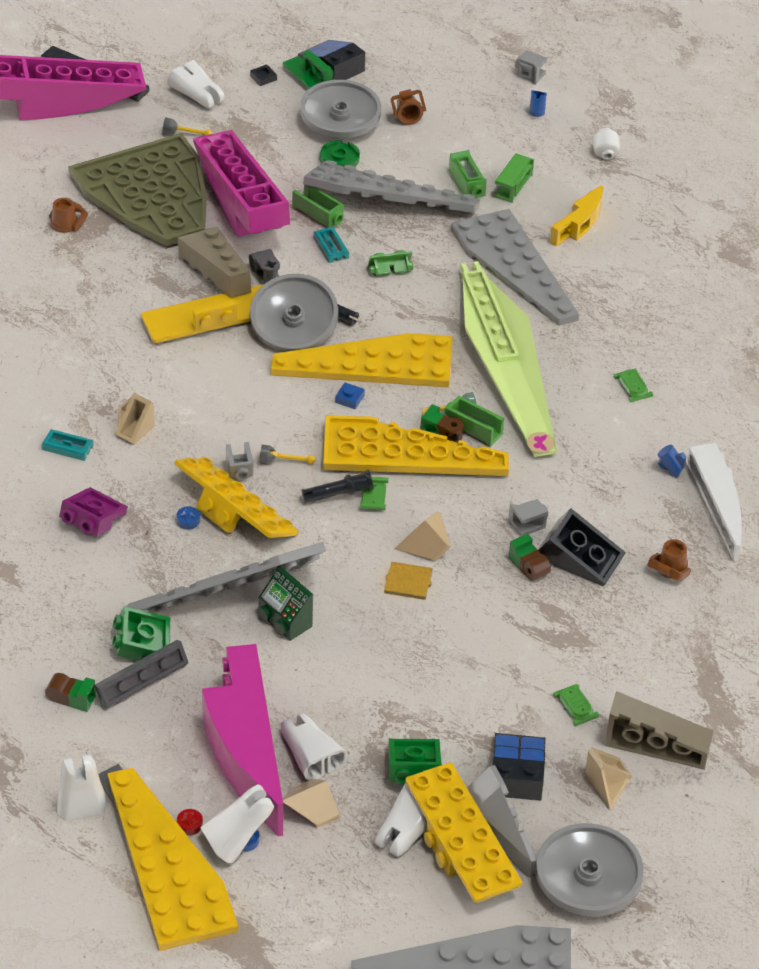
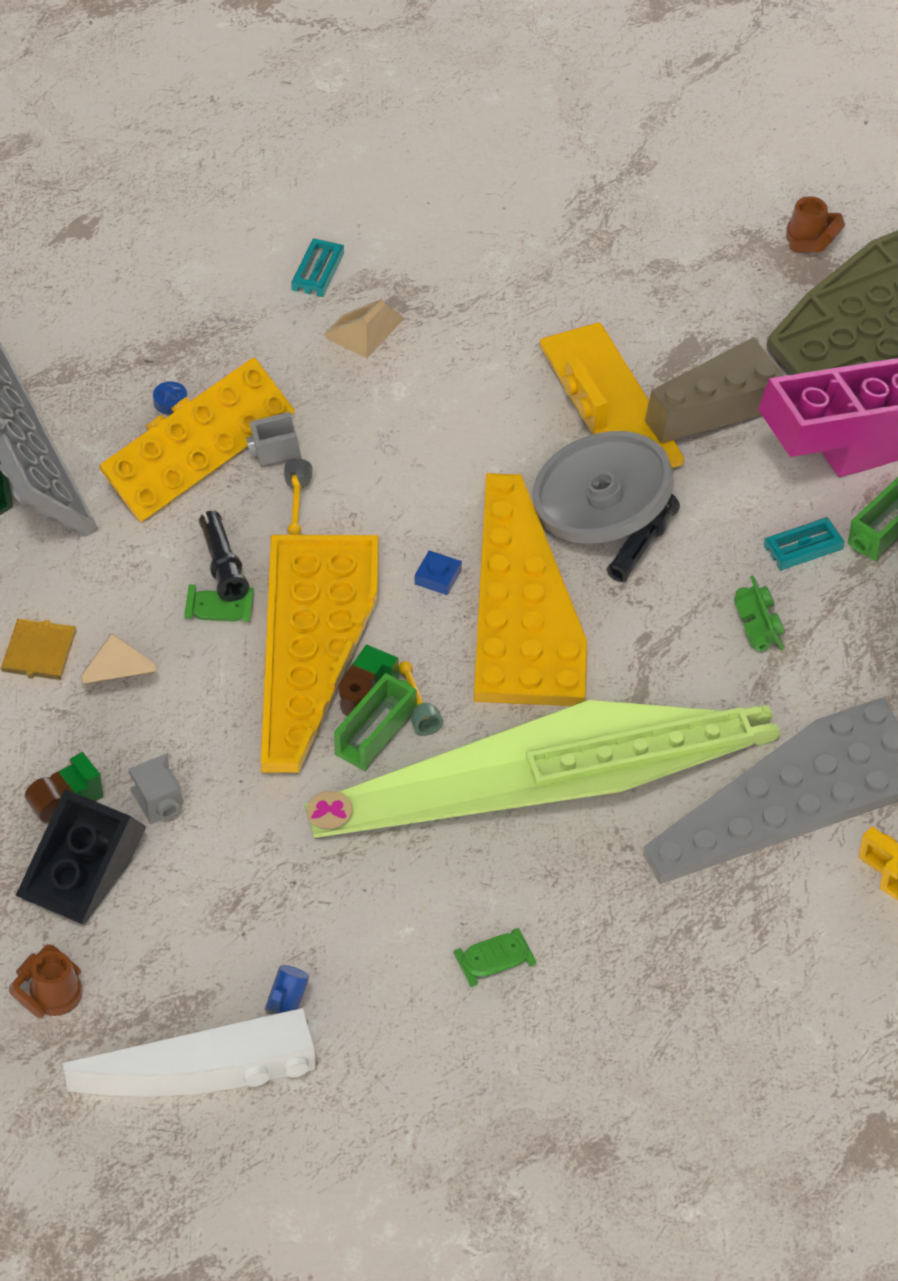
camera: 90 degrees right, 5 degrees up
(91, 511) = (172, 291): magenta plate -> none
(264, 265) = (729, 456): dark grey piece -> none

